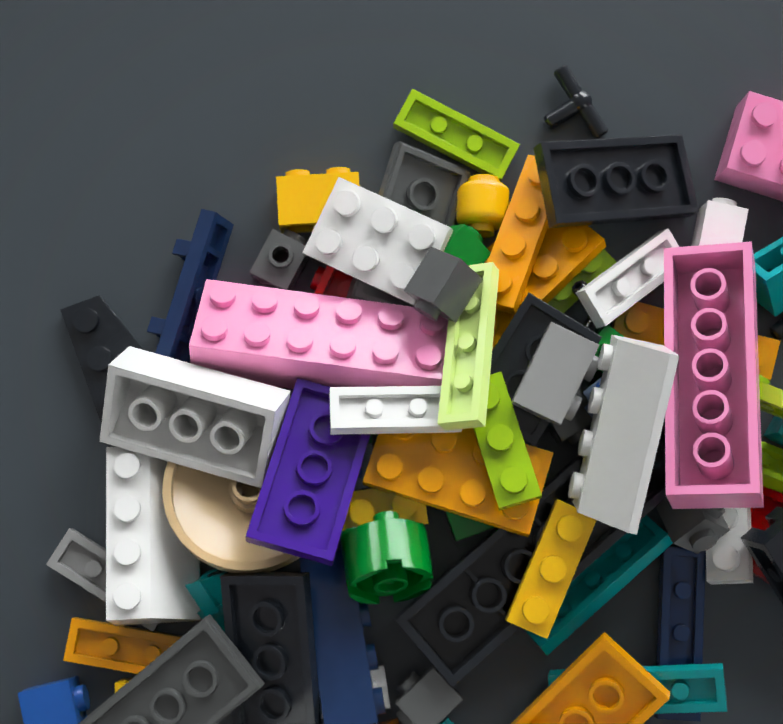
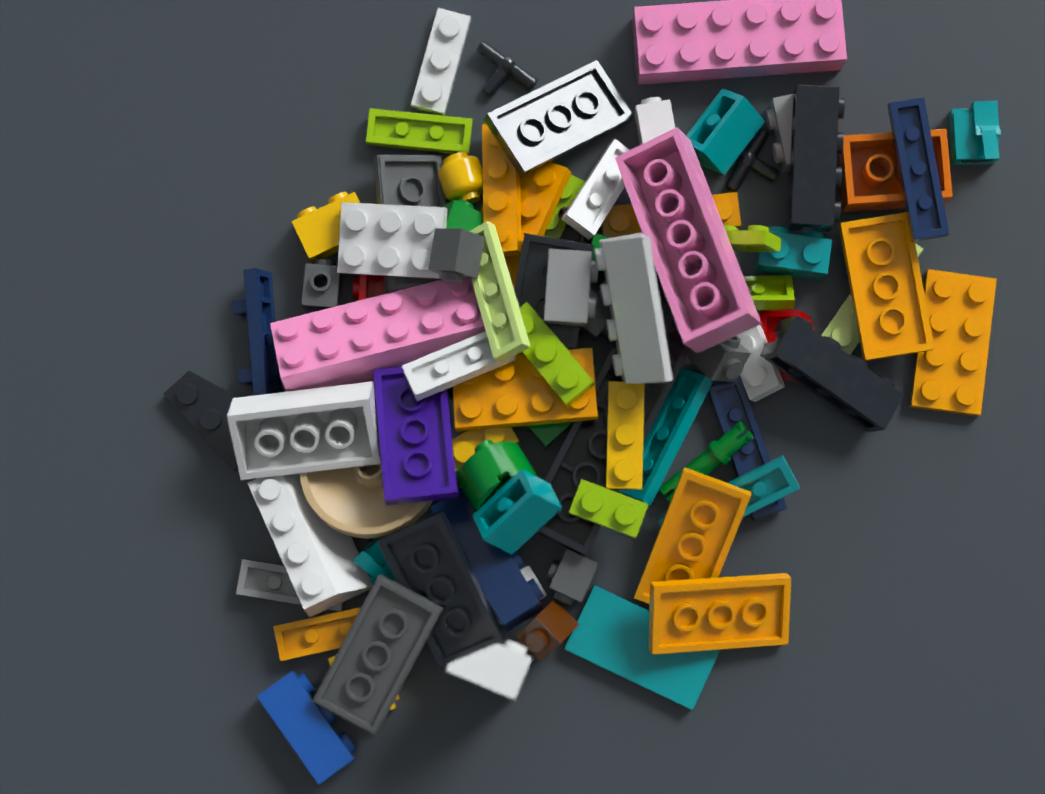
camera: 20 degrees left, 0 degrees up
(393, 609) = (516, 511): none -> teal brick
(499, 645) = (608, 508): none -> lime plate
(510, 70) = (441, 62): none -> white plate
(635, 630) = (716, 454): none -> green pin

